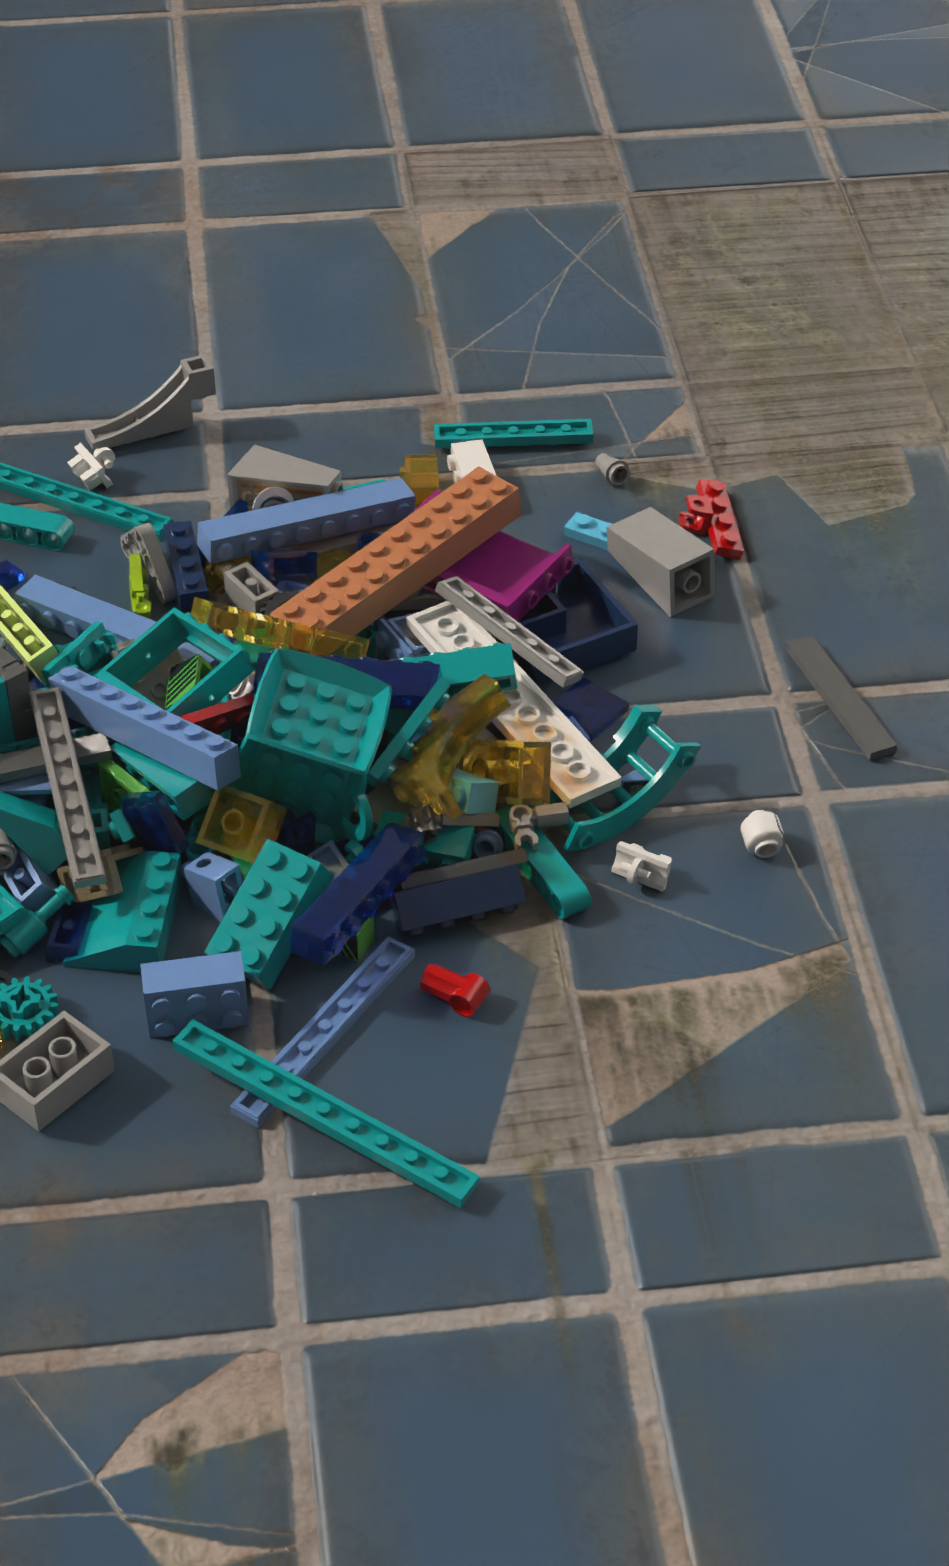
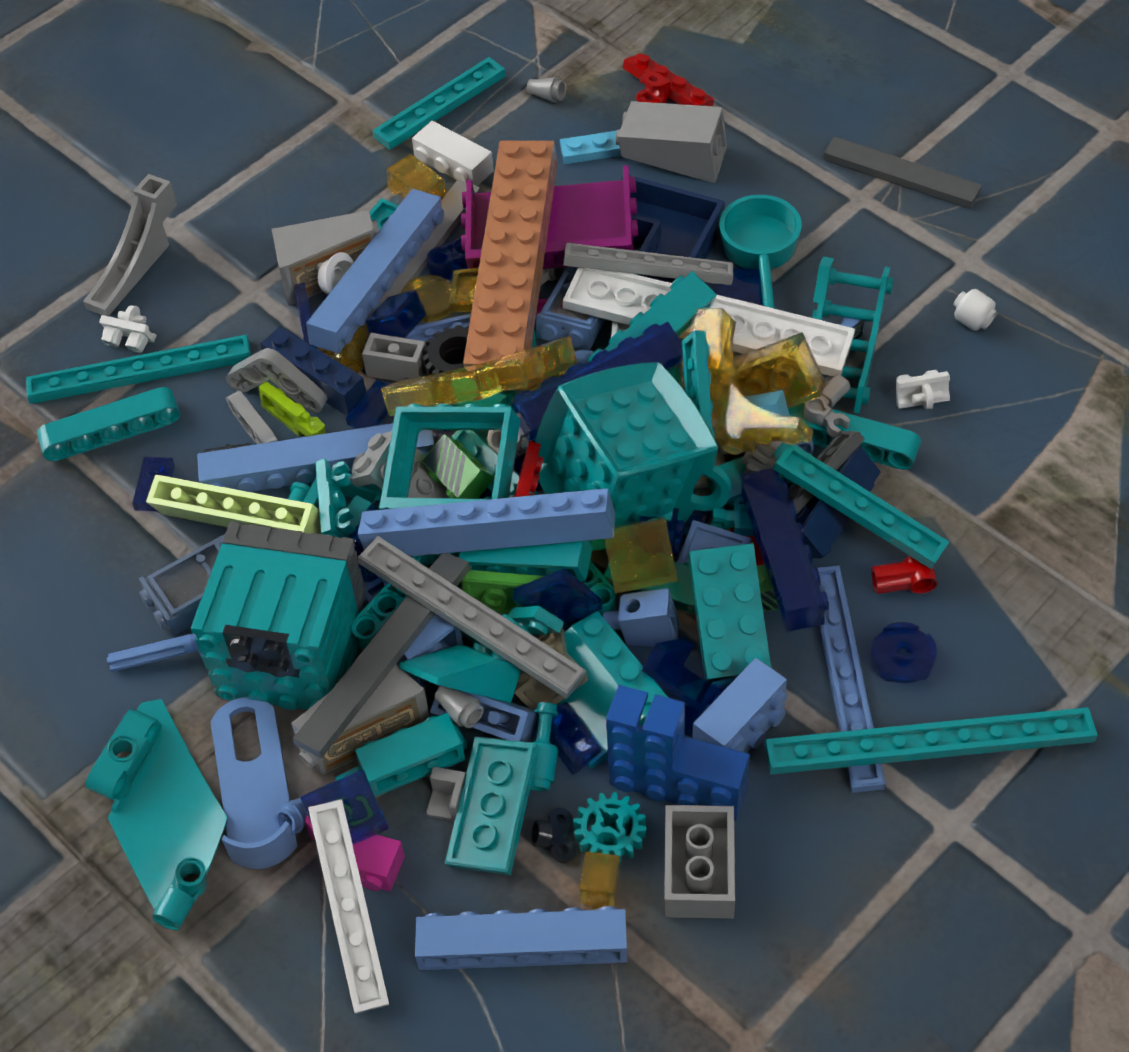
camera: 35 degrees left, 10 degrees up
(97, 979) = (666, 763): none -> blue piece
(105, 575) = (250, 419): none -> light grey beam
(186, 927) = (667, 668): none -> clear blue panel
(391, 1057) = (898, 668): none -> clear blue plate
(460, 905) = (861, 505): none -> teal plate
(644, 670) = (760, 235): none -> teal piece

